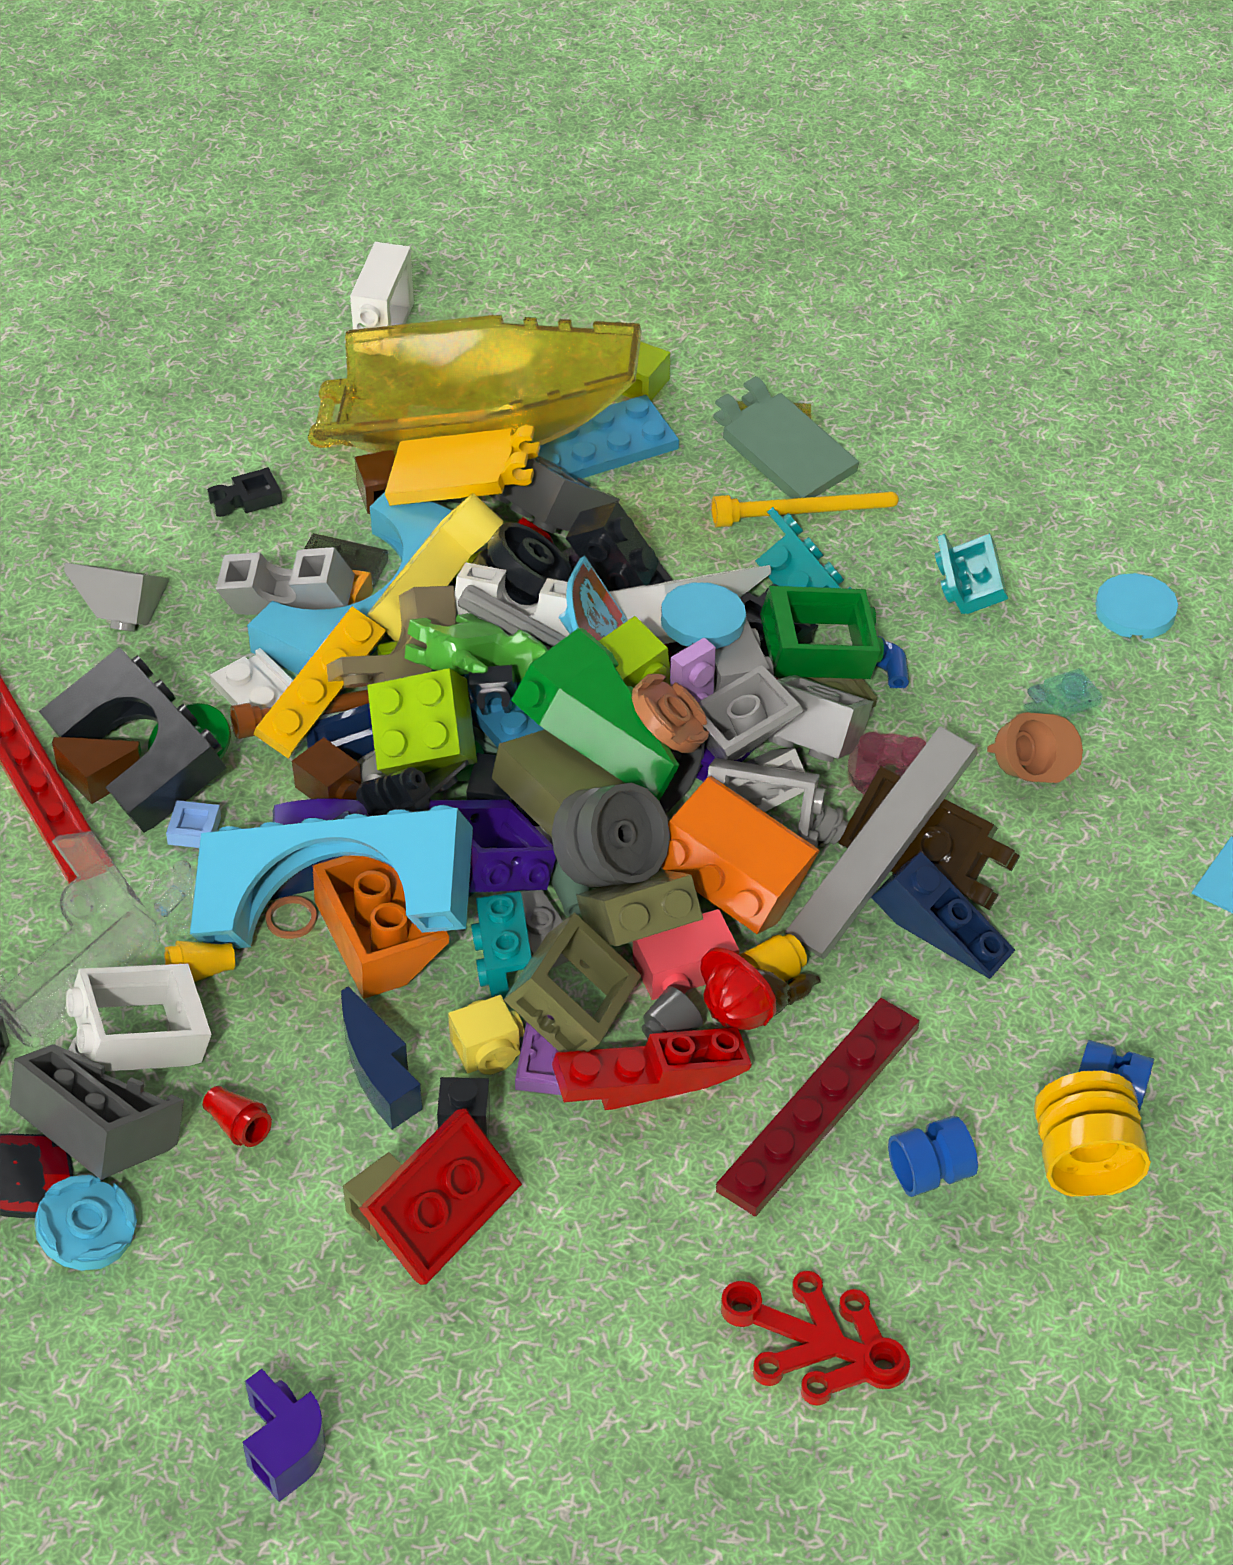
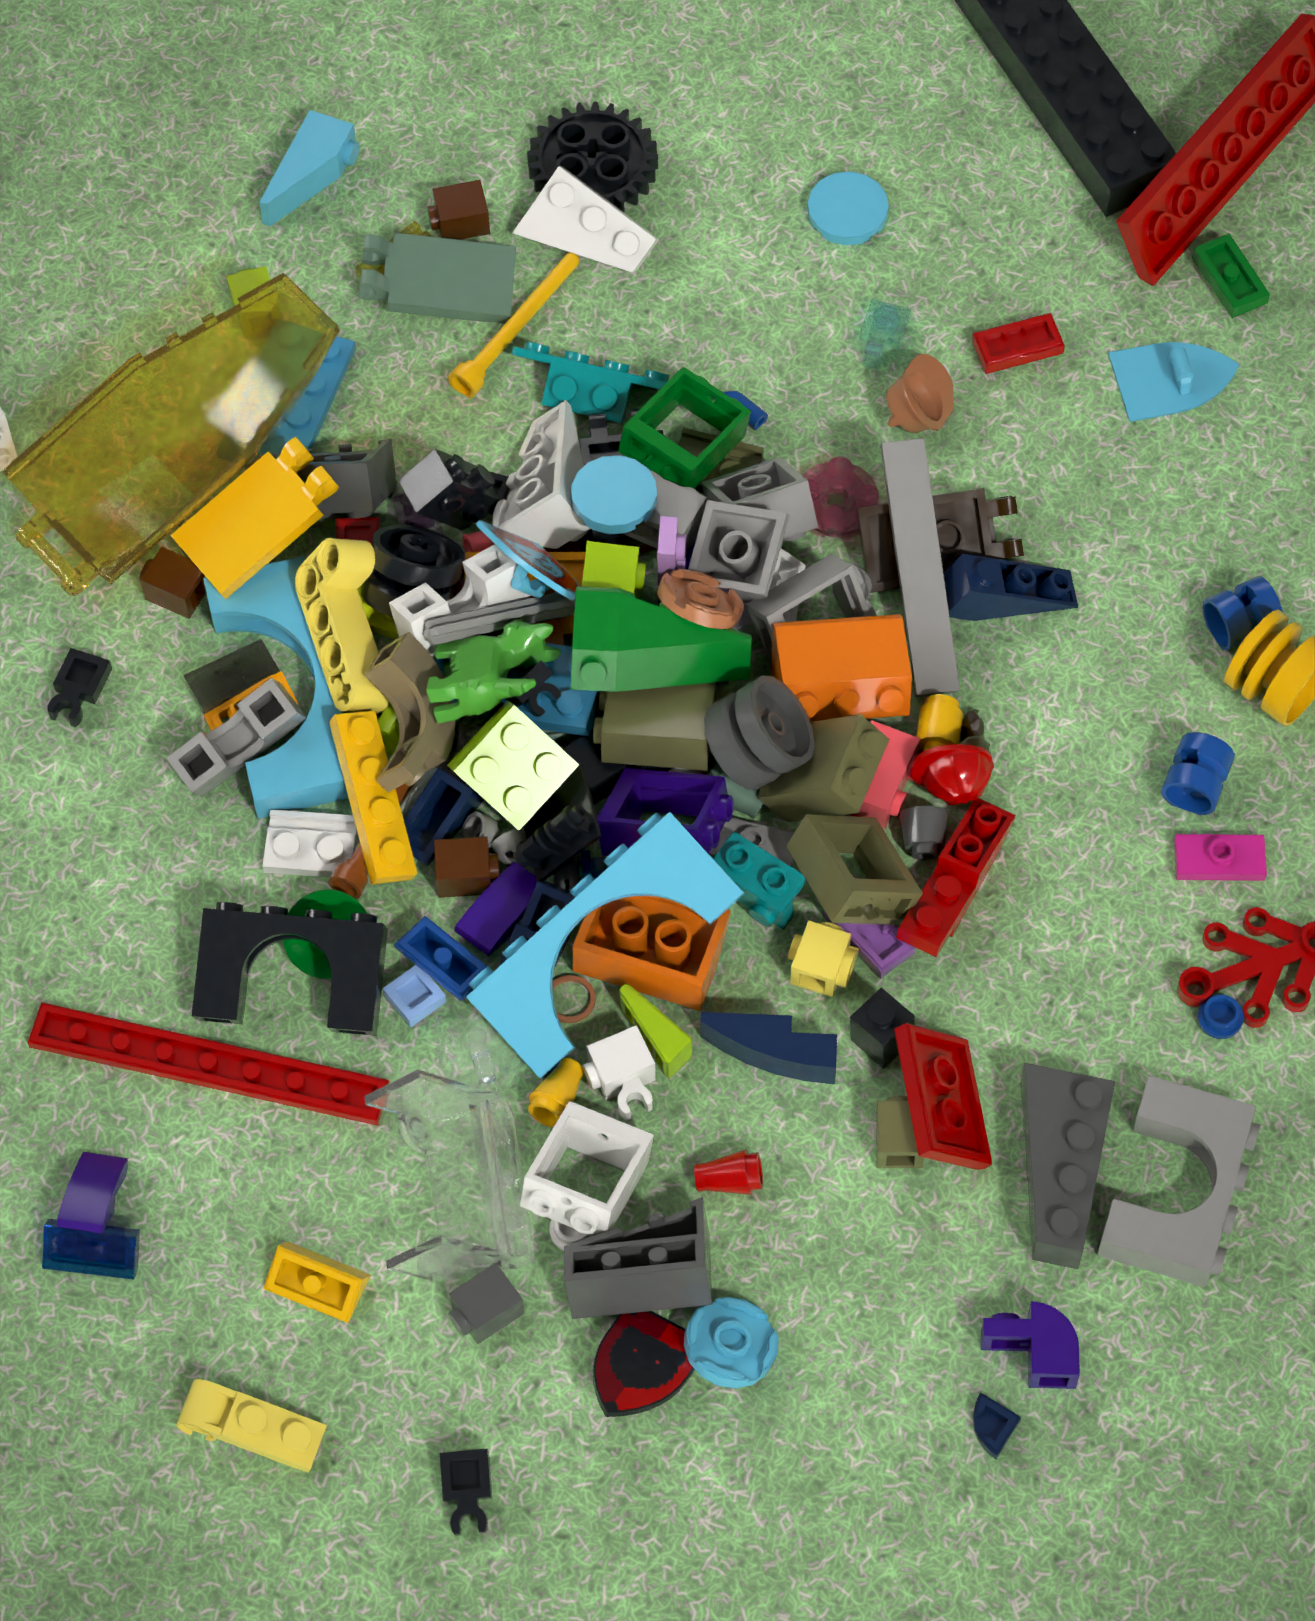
camera: 45 degrees left, 15 degrees up
(94, 762) = (280, 1019): reddish brown slope -> none
(117, 594) = (100, 861): light grey slope -> none
(184, 1464) = (993, 1424): none -> dark blue tile
(236, 803) = (440, 957): none -> blue slope
(256, 981) = (621, 1069): none -> white brick
(307, 988) = (663, 1038): none -> lime slope
(473, 1324) = (1063, 1146): none -> dark grey wedge
(498, 1478) = (1185, 1242): none -> light grey arch
(735, 1344) = (1220, 1017): none -> blue plate
(781, 326) = (310, 164): none -> medium azure slope
(817, 1107) = (1081, 804): dark red plate -> none
(847, 416) = (459, 211): none -> reddish brown brick
(882, 1235) = (1220, 857): none -> dark pink plate
(922, 479) = (585, 224): none -> white wing
(971, 573) = (712, 278): teal bracket -> none
(979, 451) = (596, 151): none -> black gear
(1160, 775) = (1018, 343): none -> red plate

